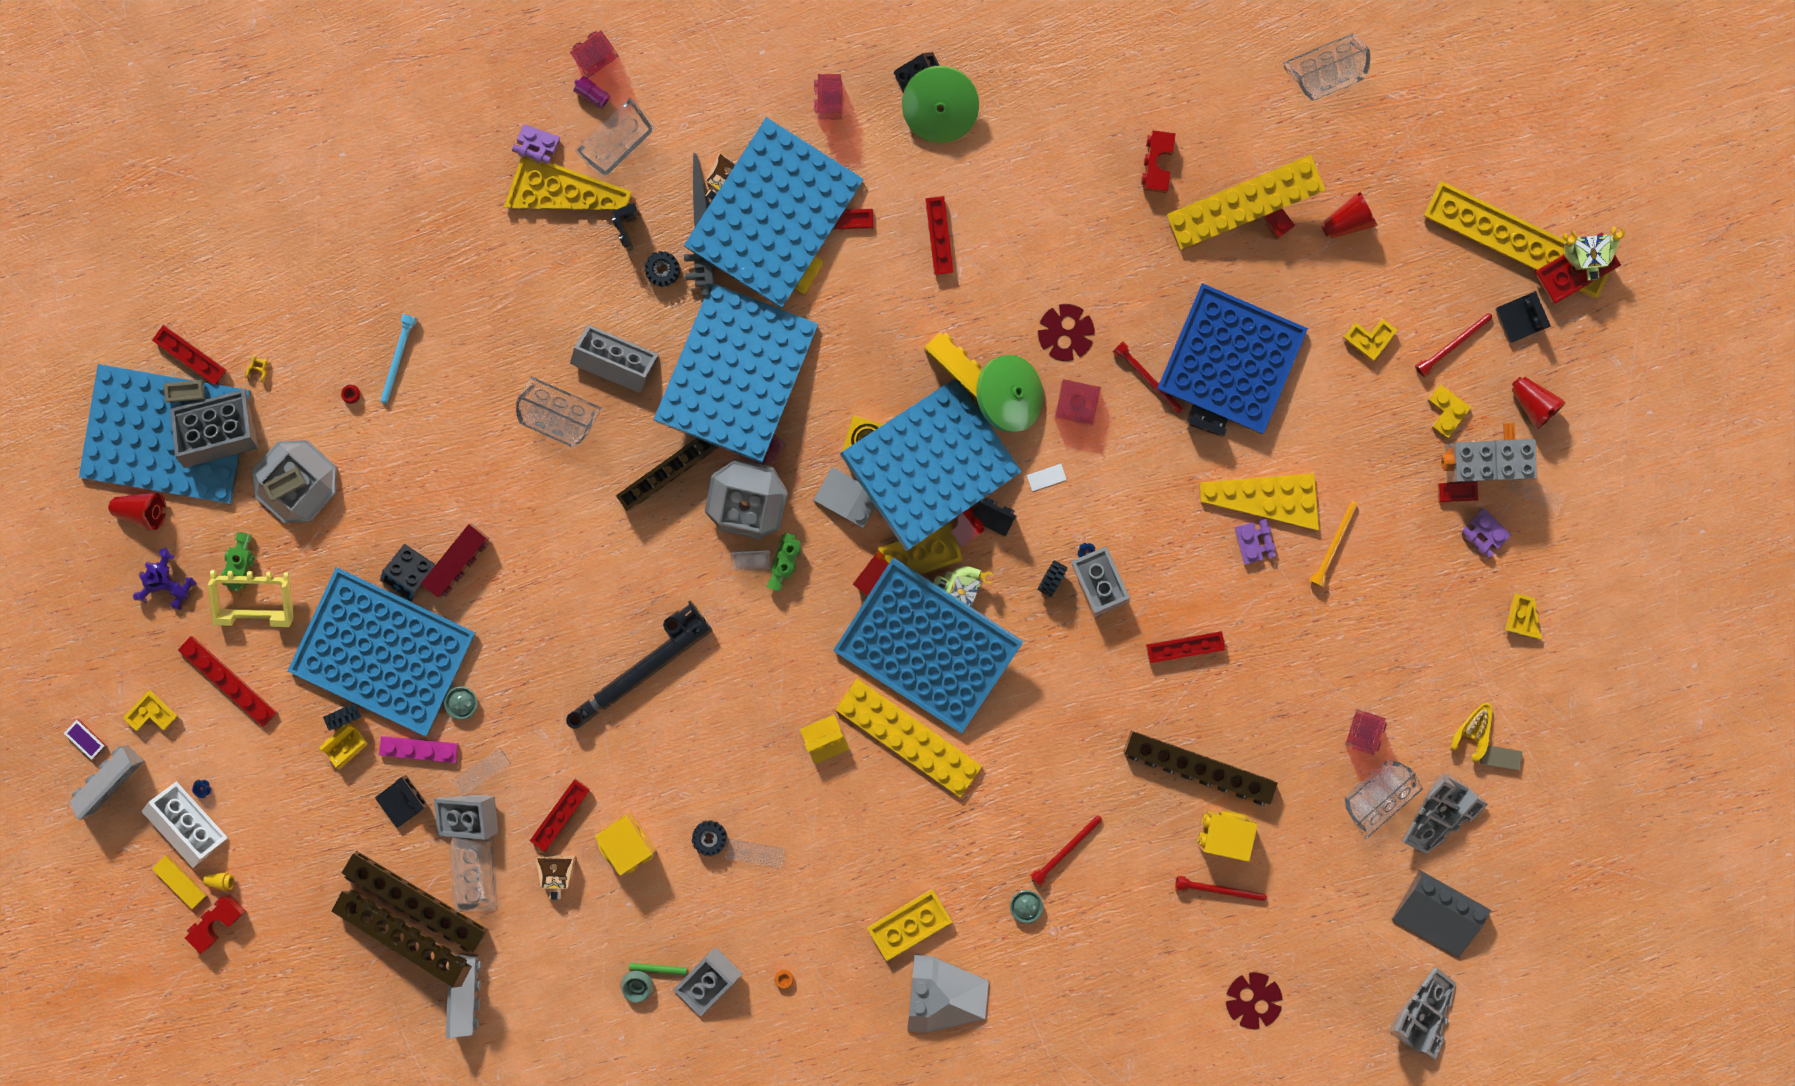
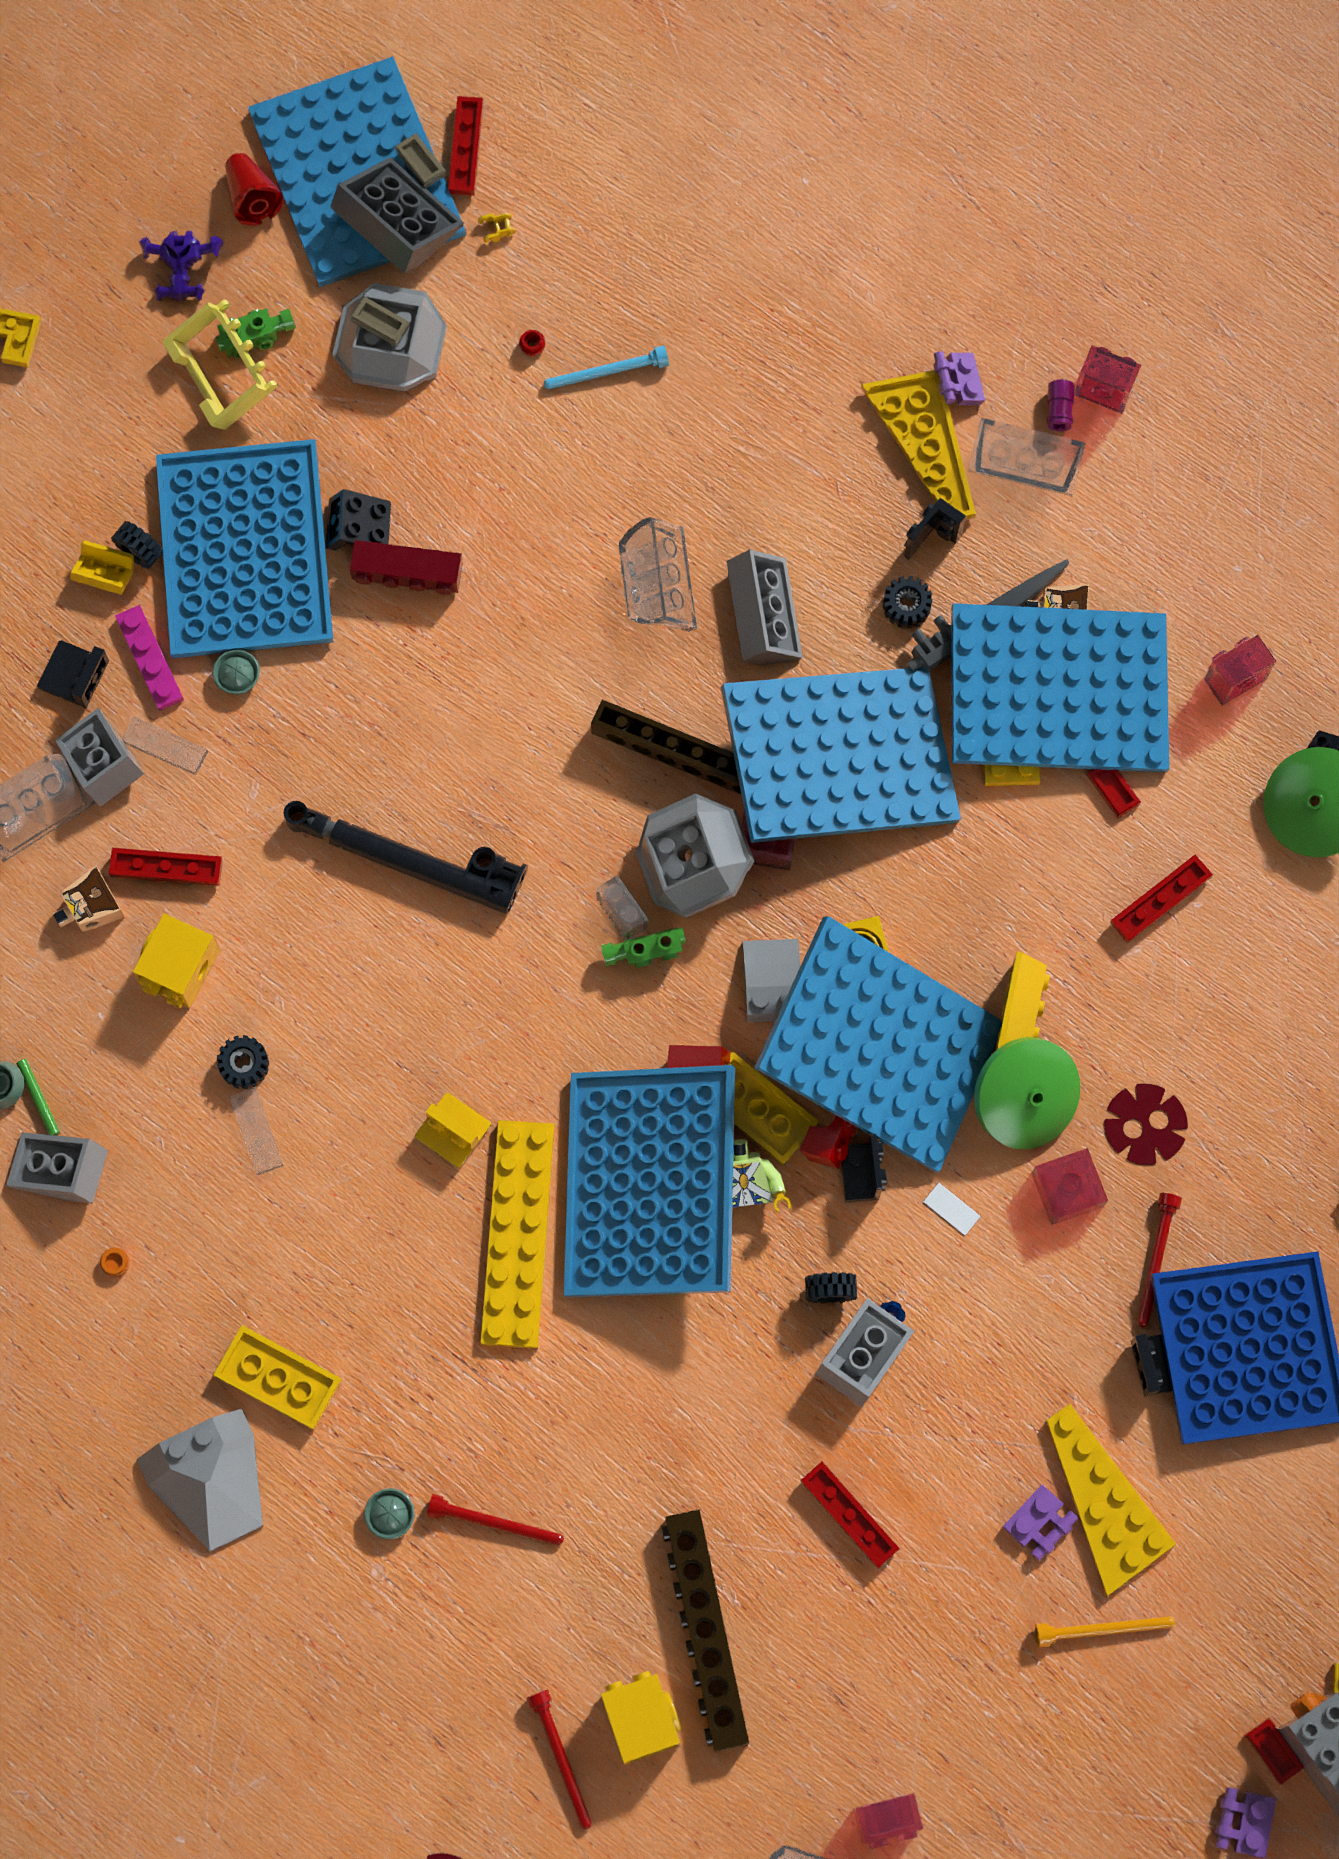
camera: 50 degrees right, 15 degrees down
(227, 681) = (102, 398): red plate -> none

